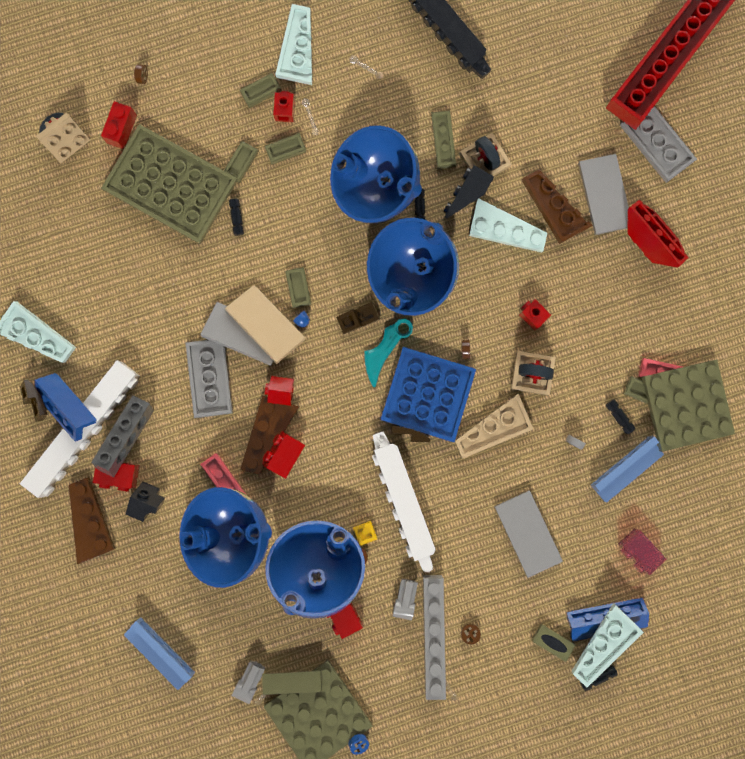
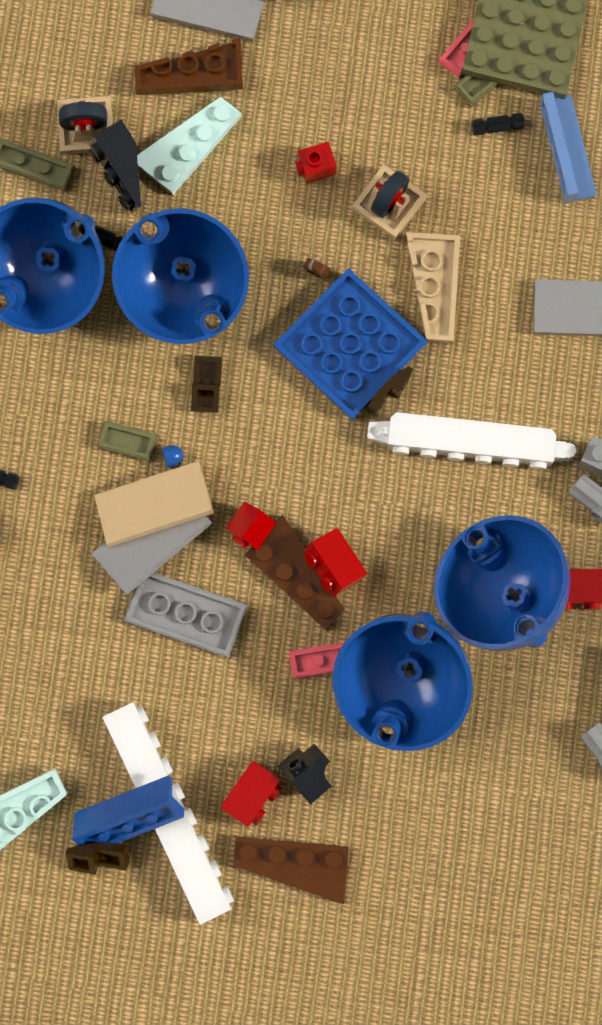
camera: 60 degrees left, 5 degrees down
(122, 436) = (207, 755): dark grey brick -> none
(159, 653) = (514, 853): medium blue panel -> none
(365, 533) = (486, 508): yellow tile -> none
(377, 356) = (268, 384): teal piece -> none
(575, 442) = (502, 193): light grey tile -> none

